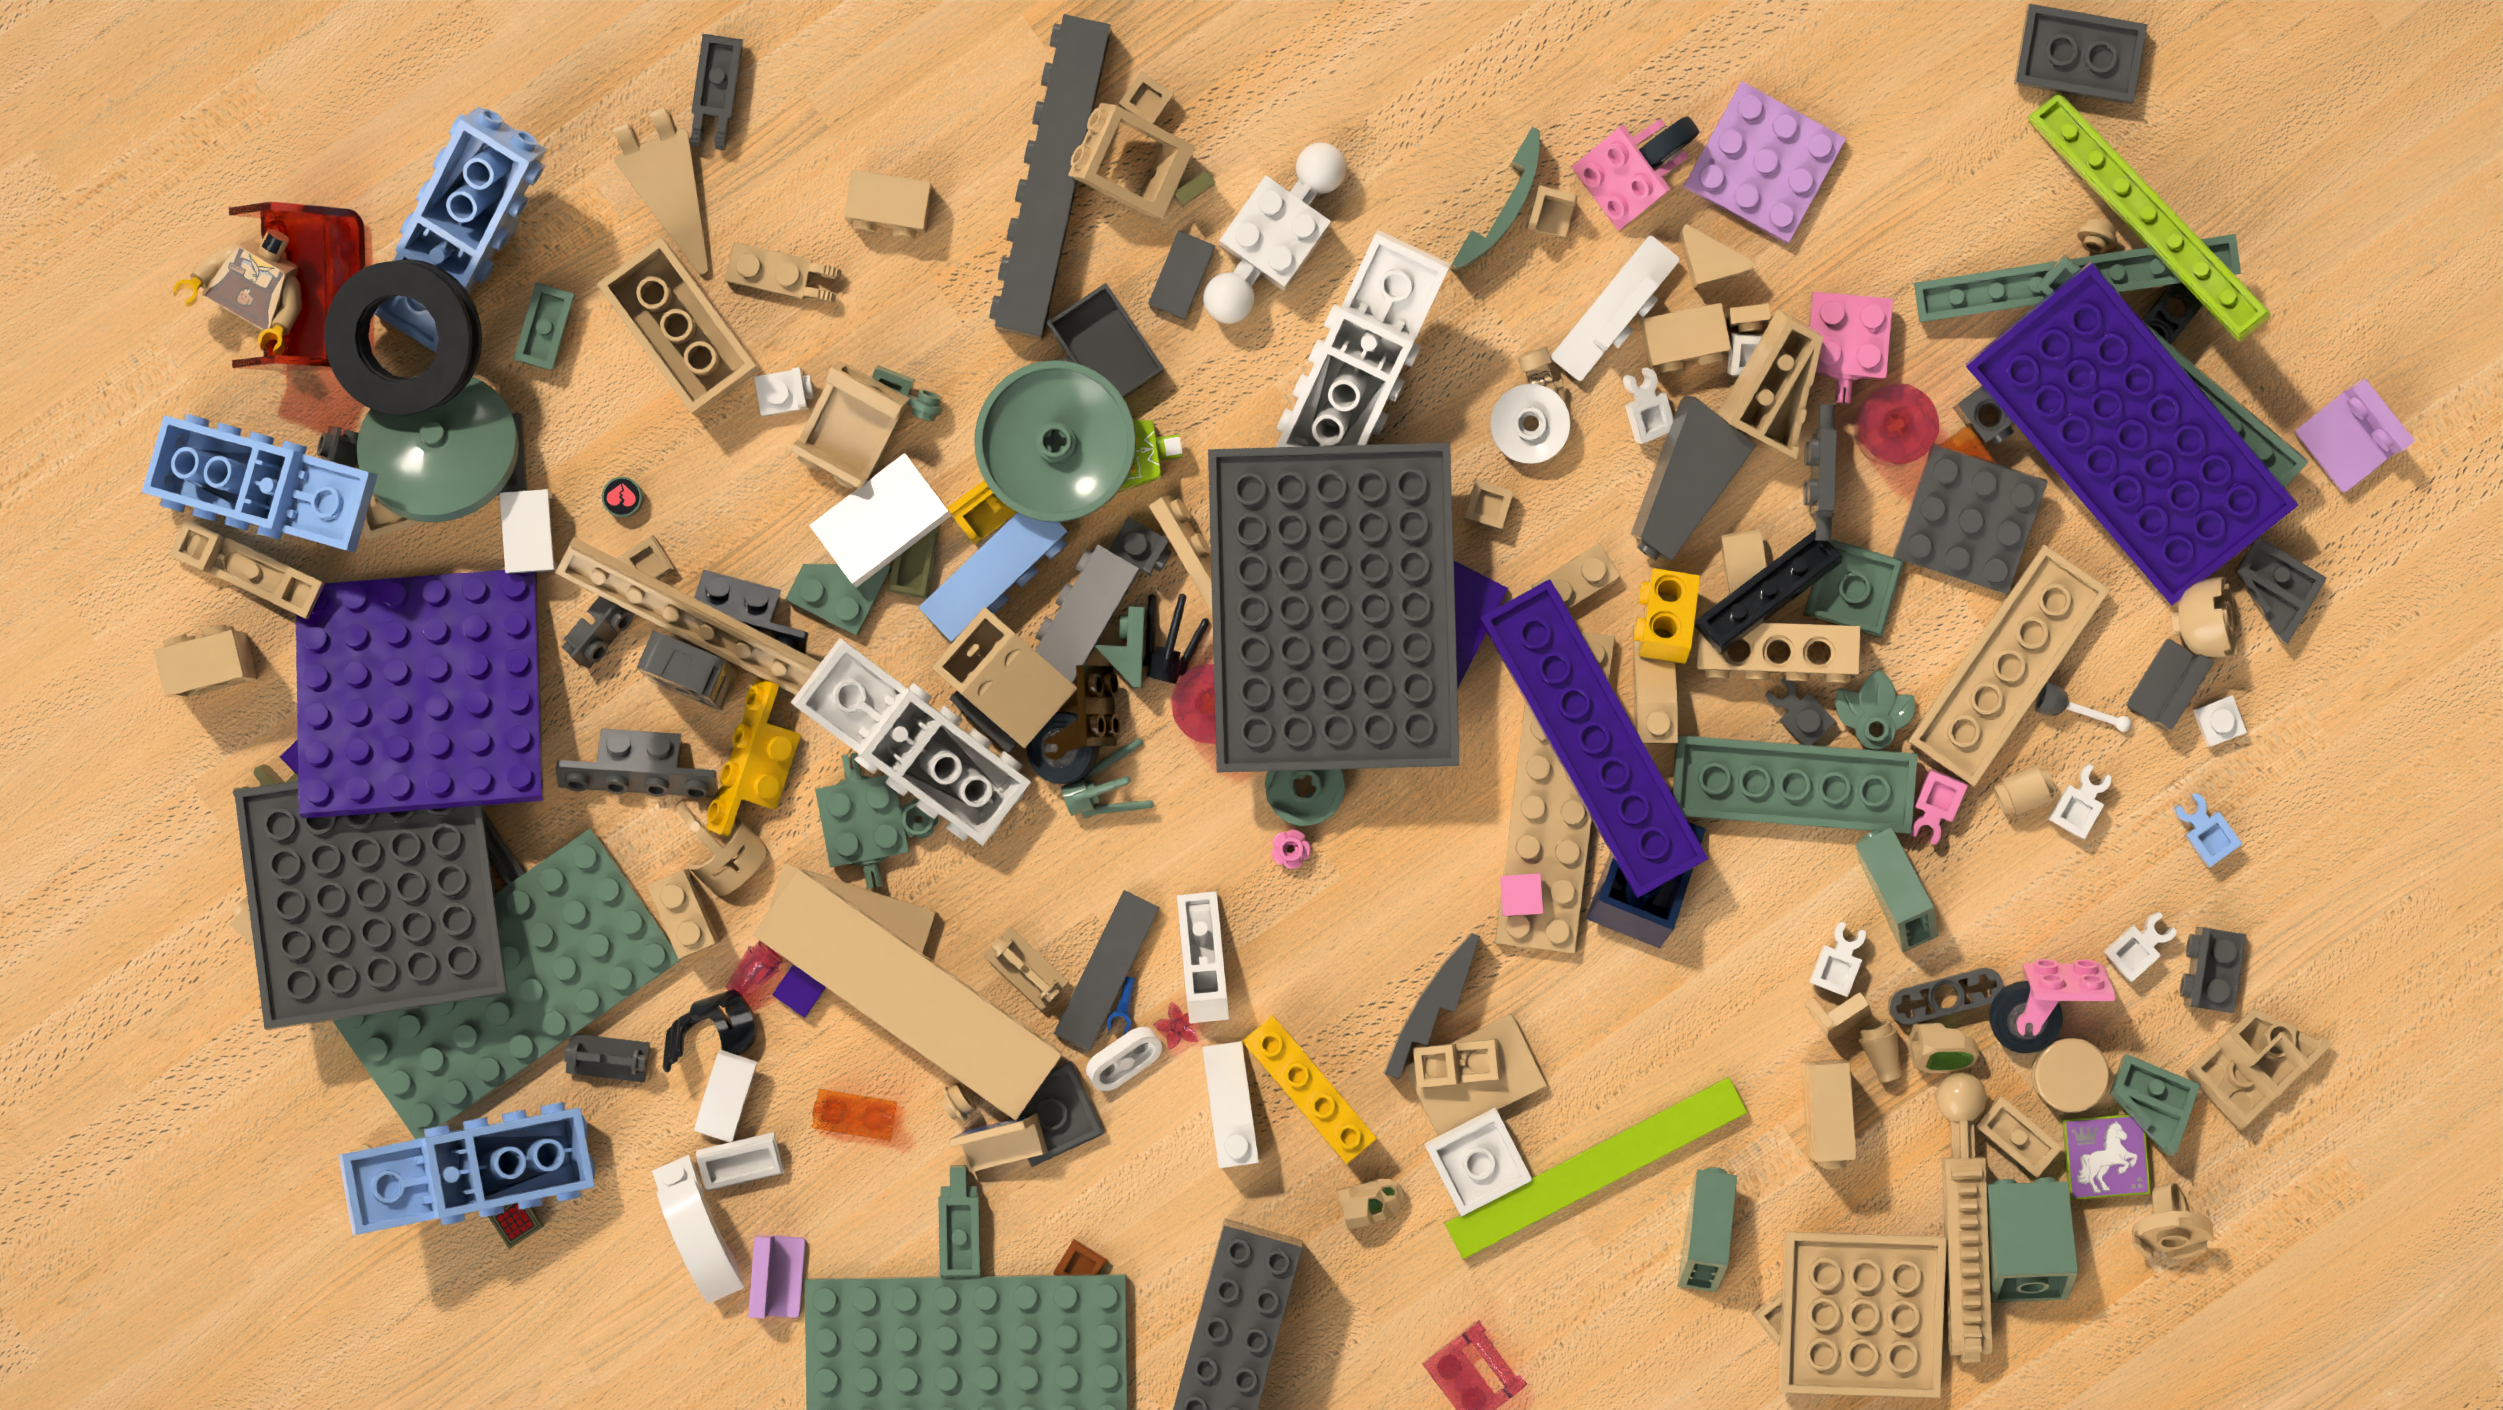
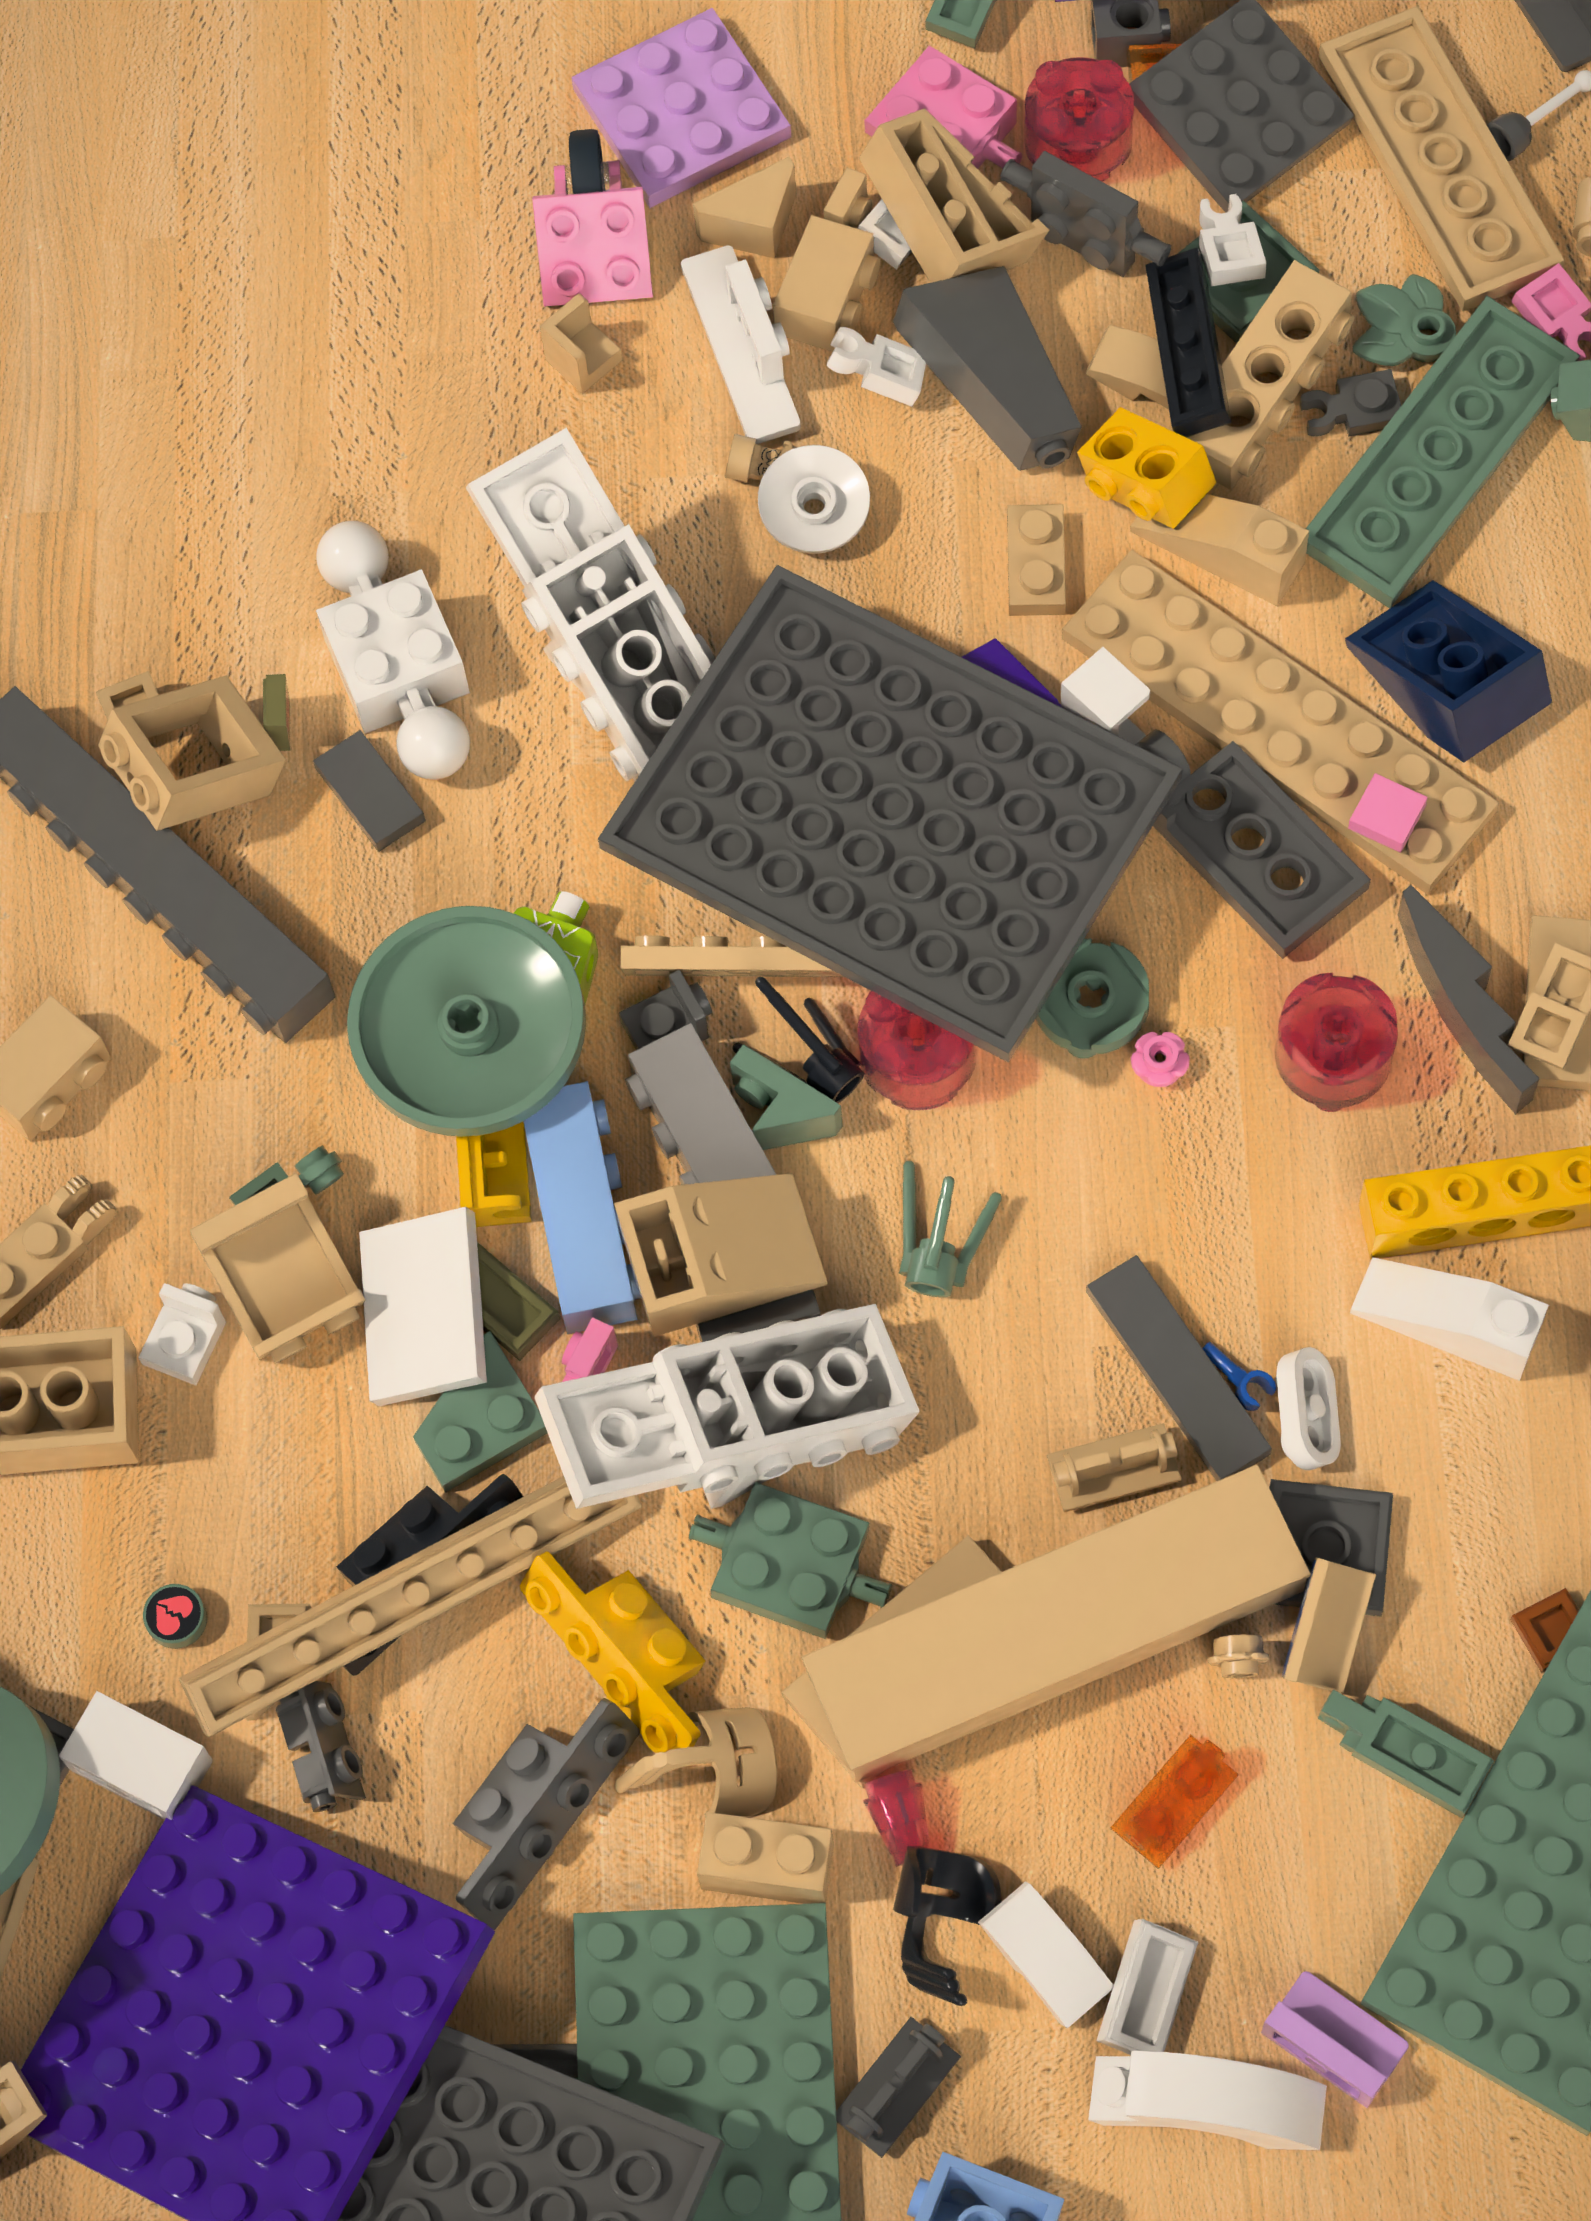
camera: 50 degrees left, 20 degrees down
(687, 670) = (449, 1641): dark grey axle -> none
(799, 991) = (962, 1773): dark purple tile -> none
(906, 633) = (589, 1352): none -> bright pink plate
(913, 828) = (837, 1473): sand green plate -> none
(1071, 742) = (856, 1234): dark brown plate -> none
(1104, 338) = (368, 904): dark grey container -> none
(1177, 1027) = (1305, 1324): clear pink plant -> none
(1203, 957) = (1239, 1236): white slope -> none
(1366, 968) = (1329, 1071): none -> clear pink brick
(1434, 825) = (1242, 875): none -> dark grey hinge
(1476, 245) = (510, 343): sand green slope -> none
(1484, 690) = (1105, 695): none -> white panel
(1488, 504) = (883, 594): tan plate -> none
(1593, 738) = (1248, 618): dark purple plate -> none
(1856, 577) = (1228, 247): none -> white plate

